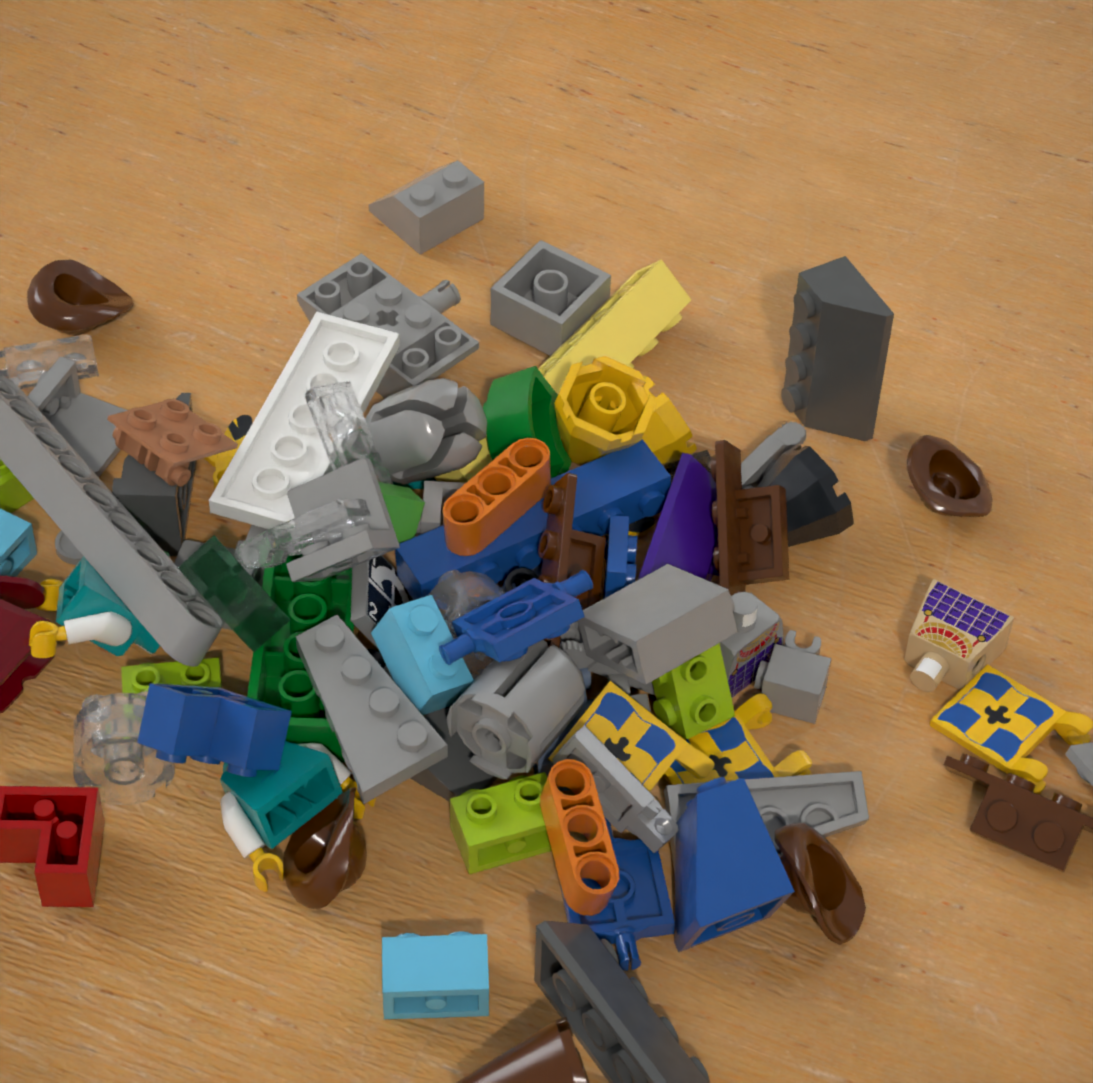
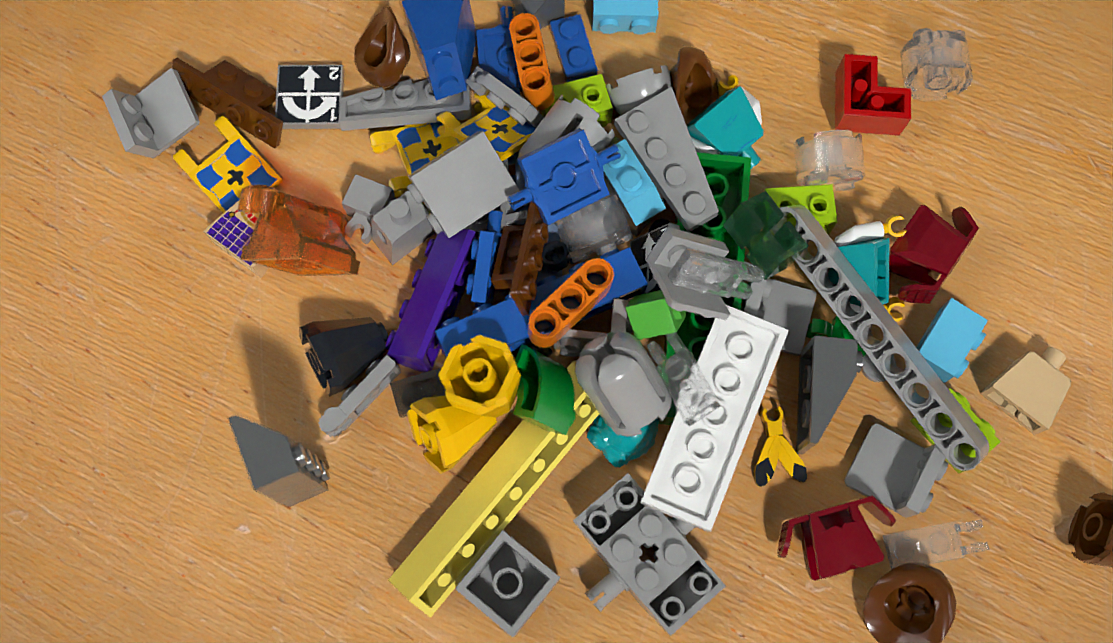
camera: 175 degrees left, 25 degrees up
(158, 357) = (838, 538): none -> dark red piece
(168, 438) = (822, 381): nougat hinge -> none
(213, 728) = (770, 145): blue brick -> none
(409, 837) = (638, 88): none -> light grey cylinder
(511, 918) = (573, 48): none -> blue plate
(749, 525) = (380, 304): reddish brown bracket -> none
(872, 581) = (296, 234): none -> clear orange piece
(919, 831) = (309, 96): none -> tile
(948, 479) = (217, 360): reddish brown hat -> none

